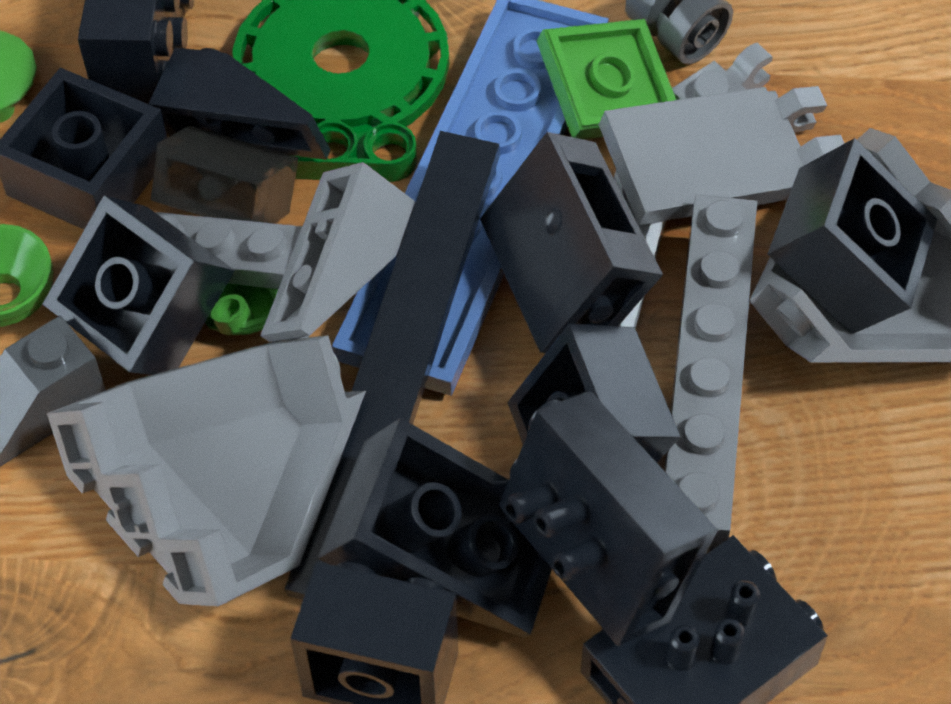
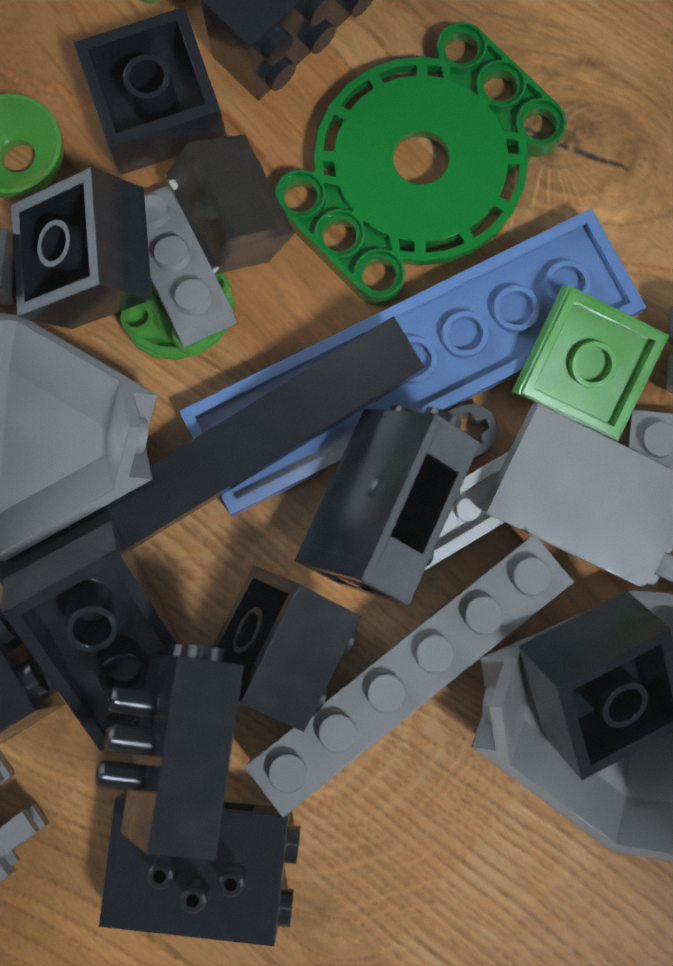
camera: 45 degrees right, 25 degrees up
(229, 99) = (286, 137): black slope -> none
(344, 242) = (231, 353): light grey slope -> none

